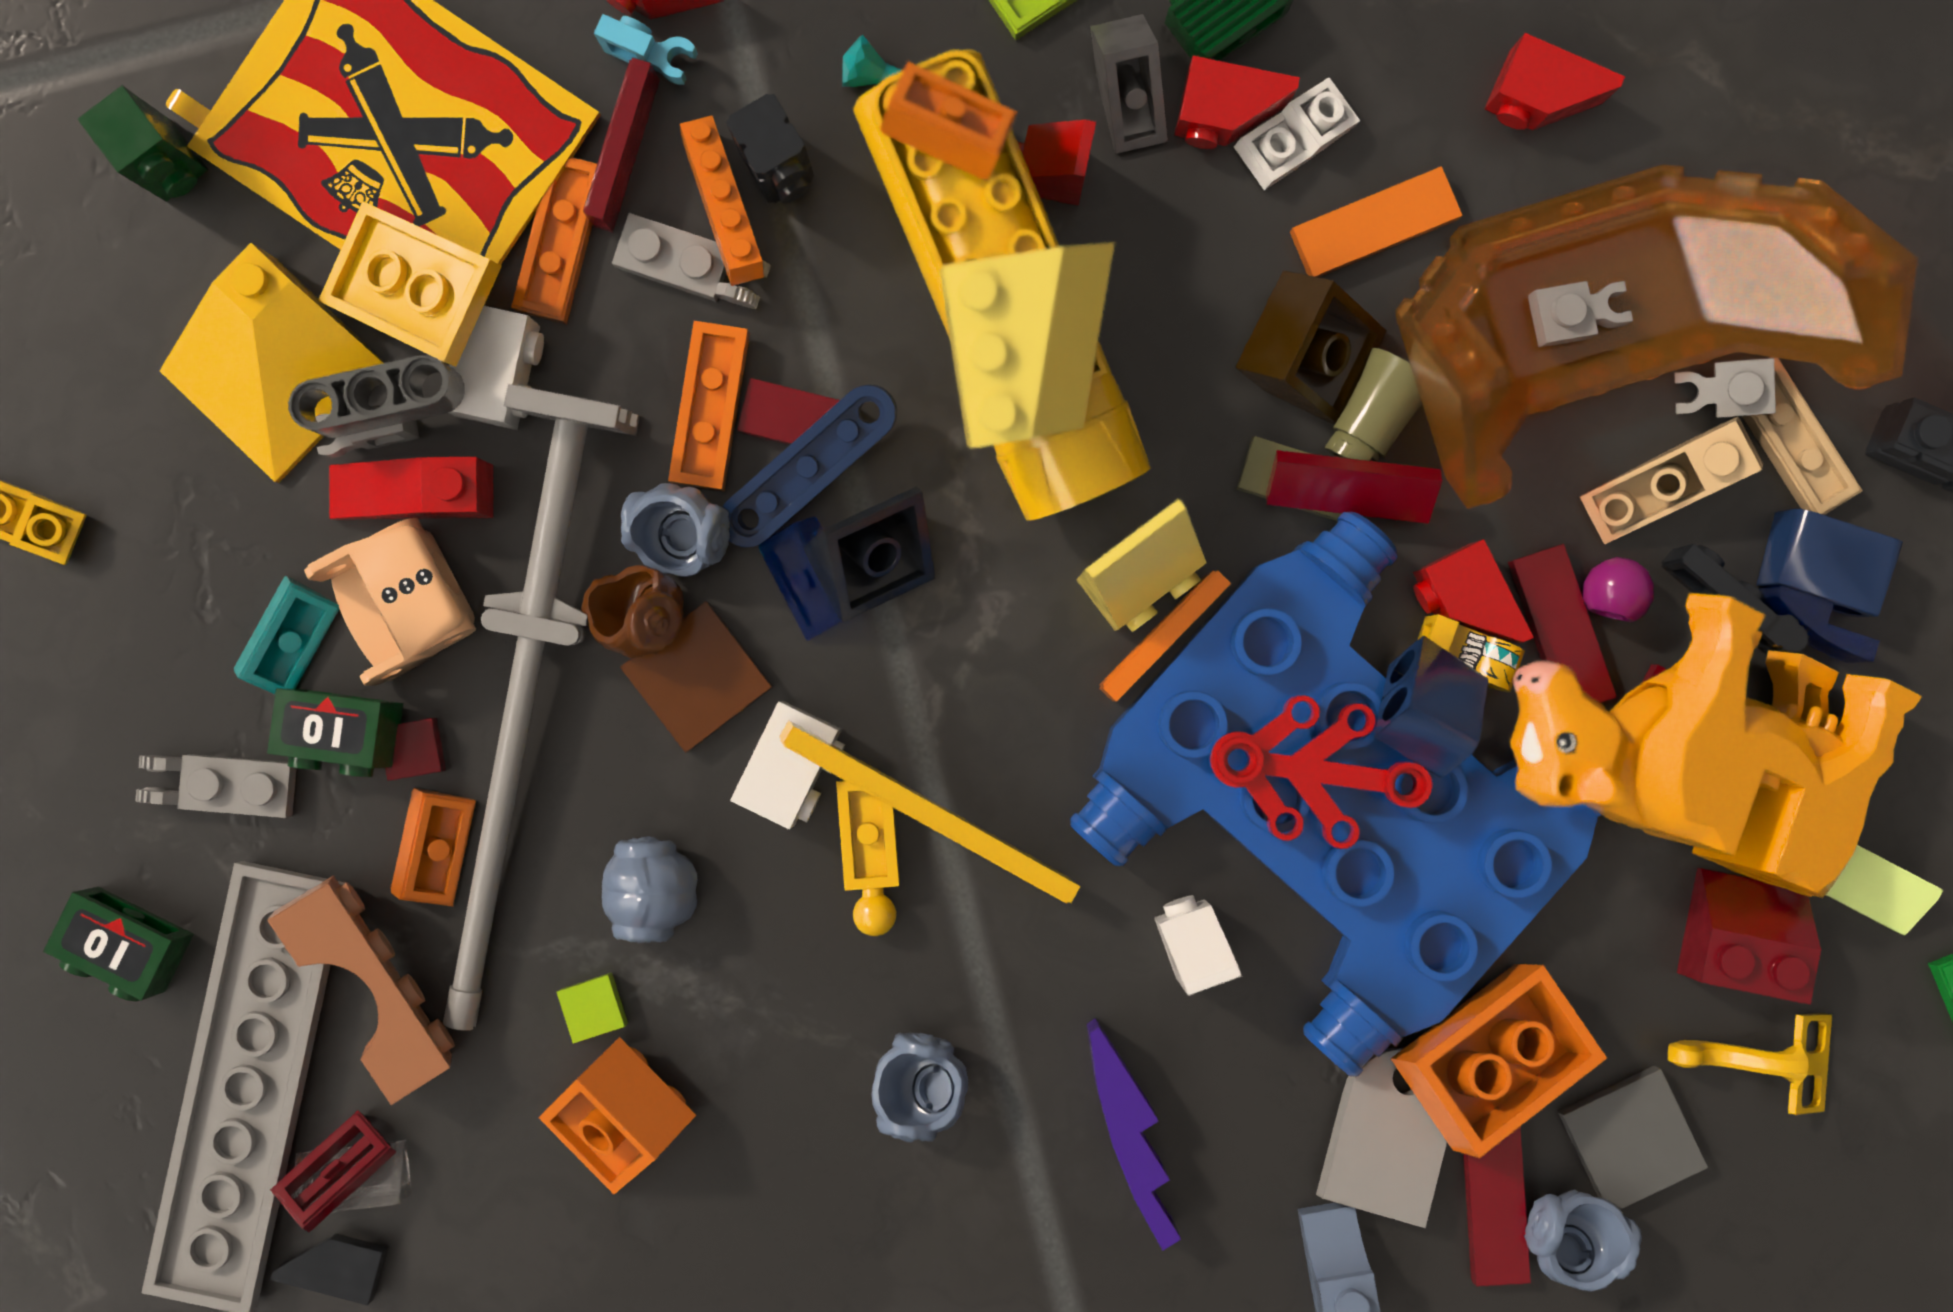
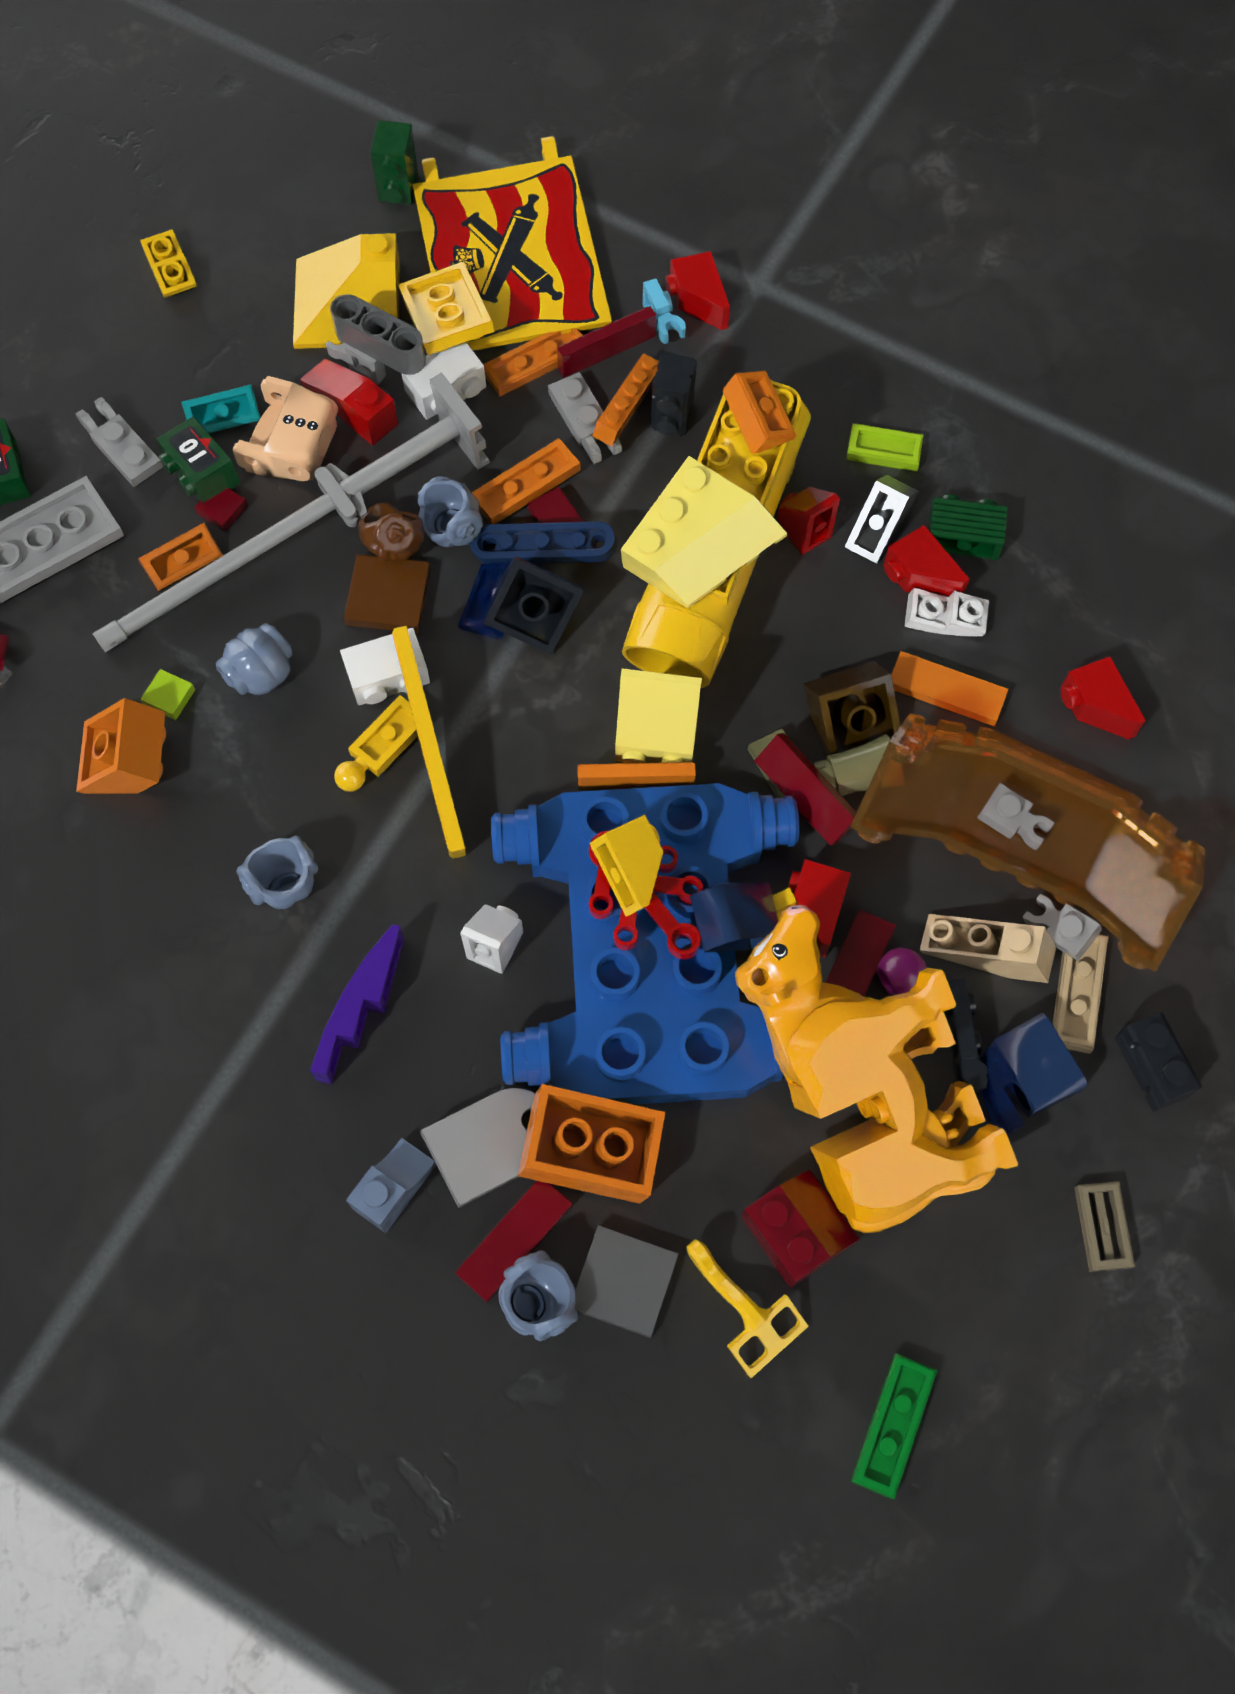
camera: 45 degrees right, 20 degrees down
(328, 929) = (65, 620): nougat arch -> none
(1289, 762) = (630, 862): none -> yellow slope
(1884, 891) = (900, 1271): yellowish green slope -> none

